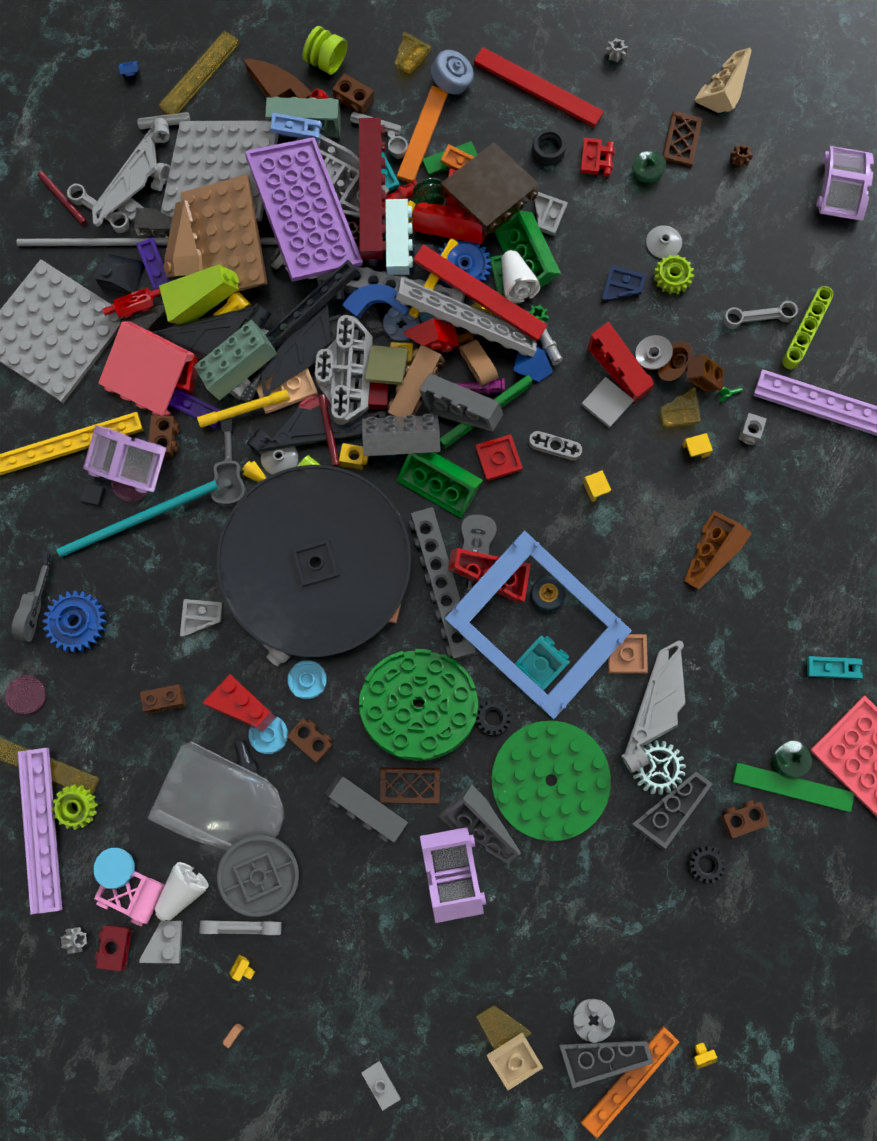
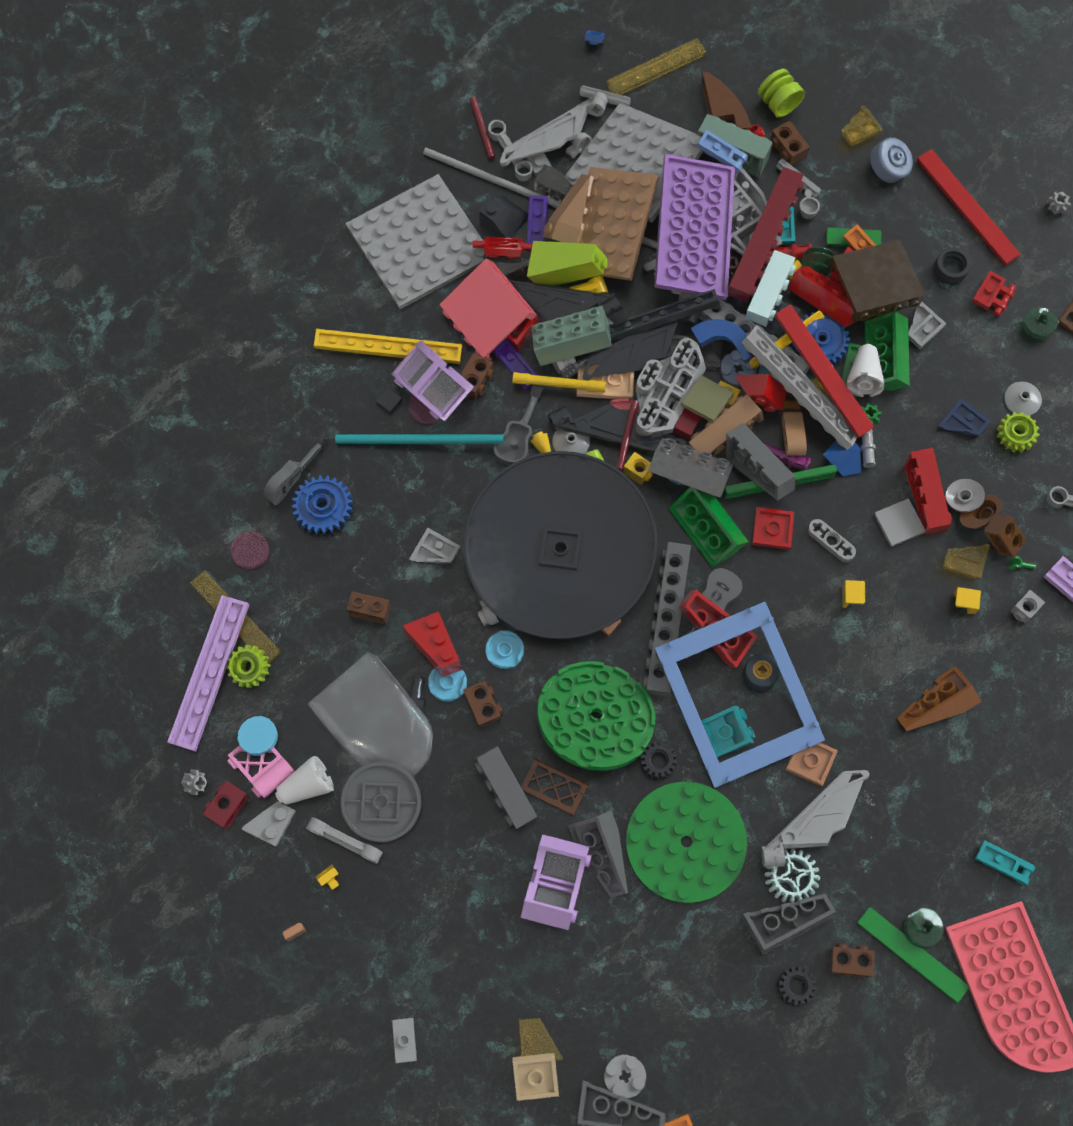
camera: 25 degrees right, 5 degrees down
(422, 134) = (837, 205): orange tile -> none

